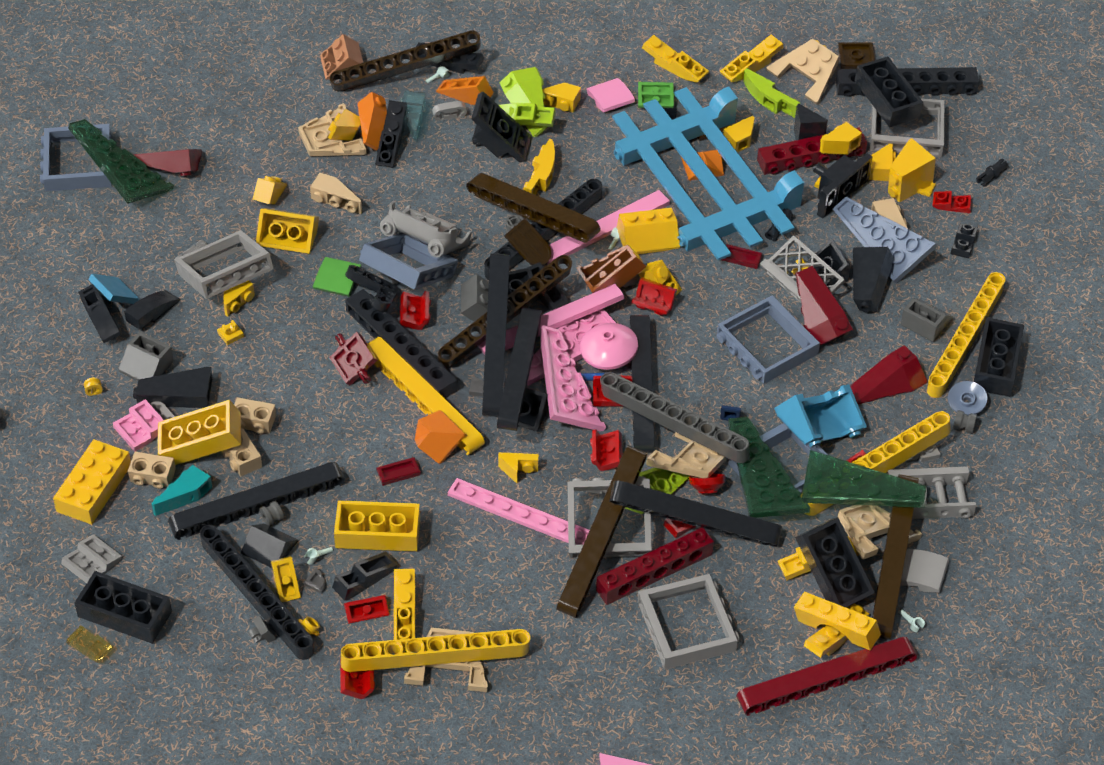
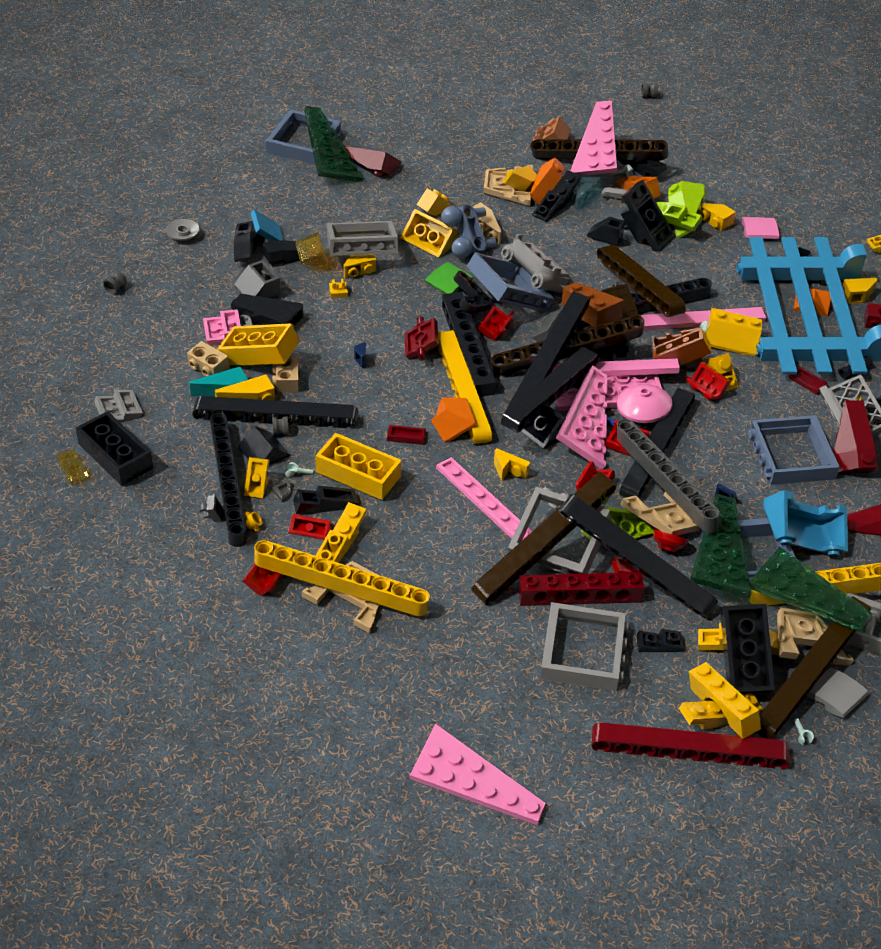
camera: 25 degrees right, 5 degrees down
(21, 325) = (182, 229): none -> light grey dish
(92, 481) = (155, 352): yellow brick -> none
(93, 386) = (206, 284): yellow bush -> none
(181, 299) = (313, 252): none -> clear yellow slope
(221, 484) = (254, 388): none -> yellow slope
(256, 415) = (315, 351): tan brick -> none
(302, 401) = (360, 354): none -> dark blue slope
(330, 213) = (468, 228): none -> sand blue piece
(406, 61) = (597, 147): none -> bright pink wing
(464, 157) = (608, 230): none -> black slope
(522, 254) = (602, 306): none -> dark orange wedge
(543, 169) = (670, 260): yellow slope -> none
(660, 91) = (803, 238): bright green slope -> none
(674, 62) = (832, 223): yellow slope -> none
(751, 586) = (665, 641): none -> black slope

